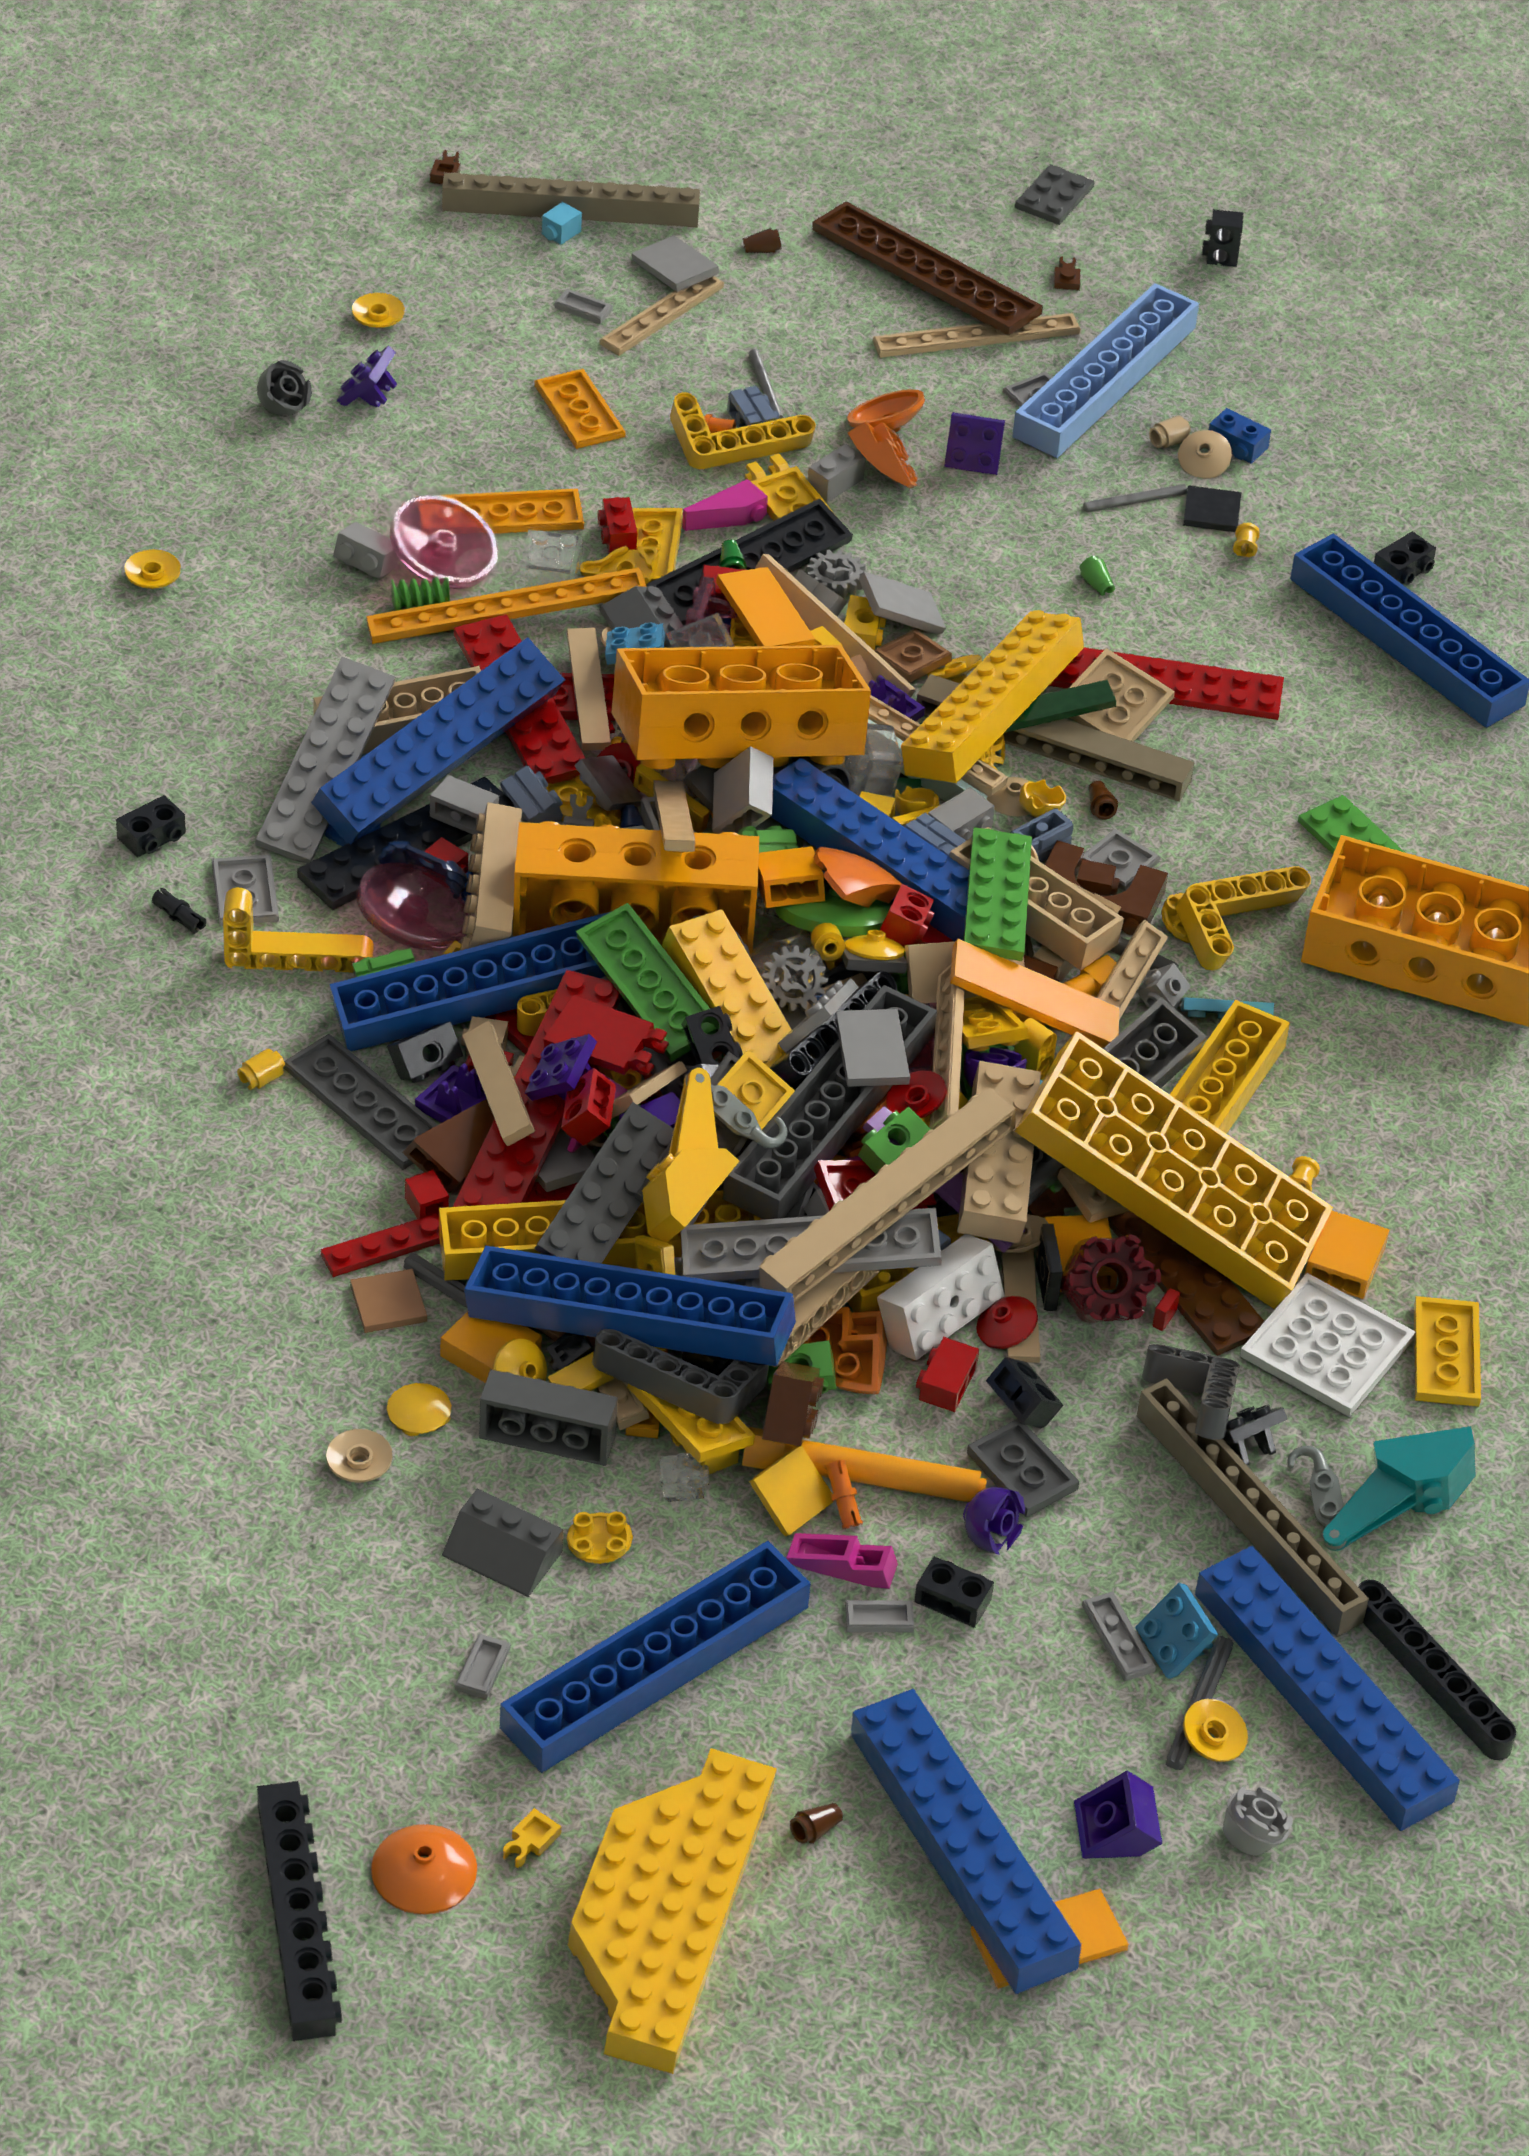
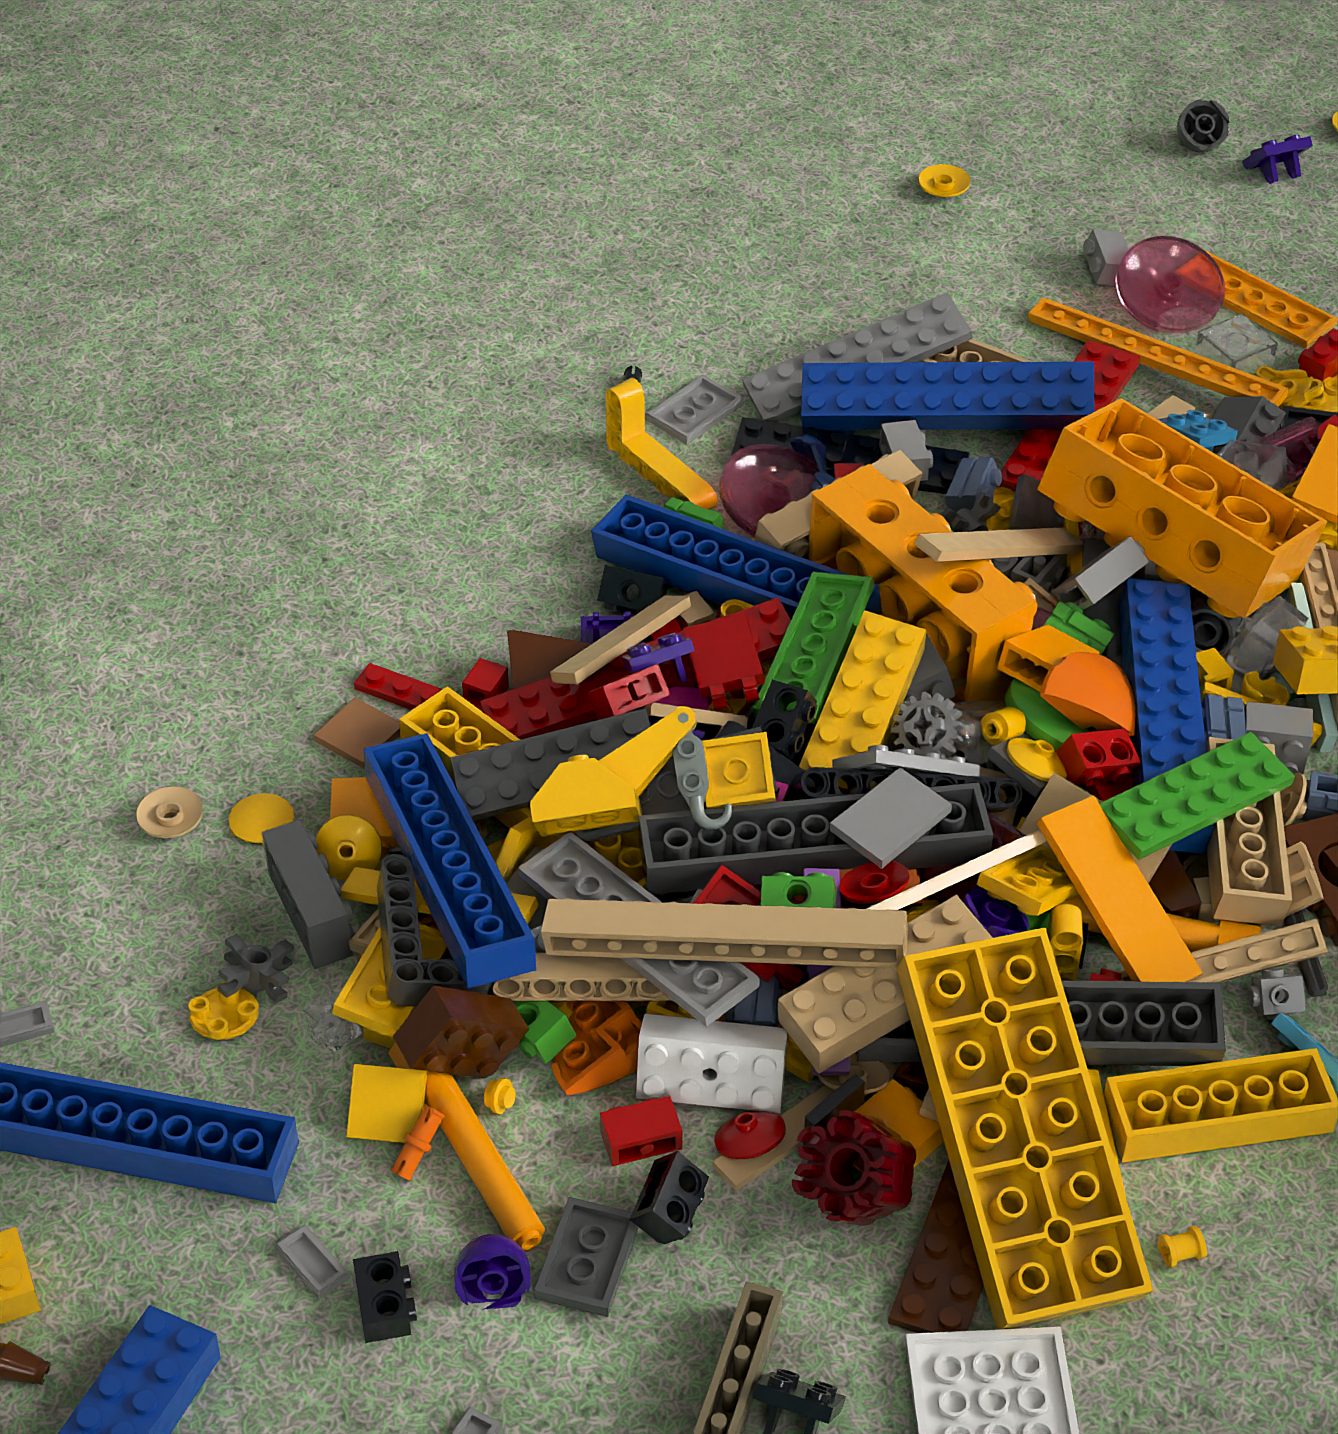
camera: 55 degrees right, 0 degrees up
(151, 826) = (692, 326): black brick -> none
(261, 1069) = (518, 522): yellow brick -> none
(359, 1097) = (557, 584): dark grey tile -> none
(419, 595) = (1102, 306): bright green piece -> none
(503, 1542) = (155, 955): dark grey slope -> none
(583, 1491) = (255, 968): none -> dark grey pin
(840, 1429) = (499, 1095): none -> yellow plate
(844, 1558) = (350, 1193): dark pink slope -> none
(1166, 1309) = (891, 1243): red tile -> none
(1198, 1373) = (828, 1339): dark grey beam -> none
(1347, 1253) = (1123, 1345): light orange brick -> none

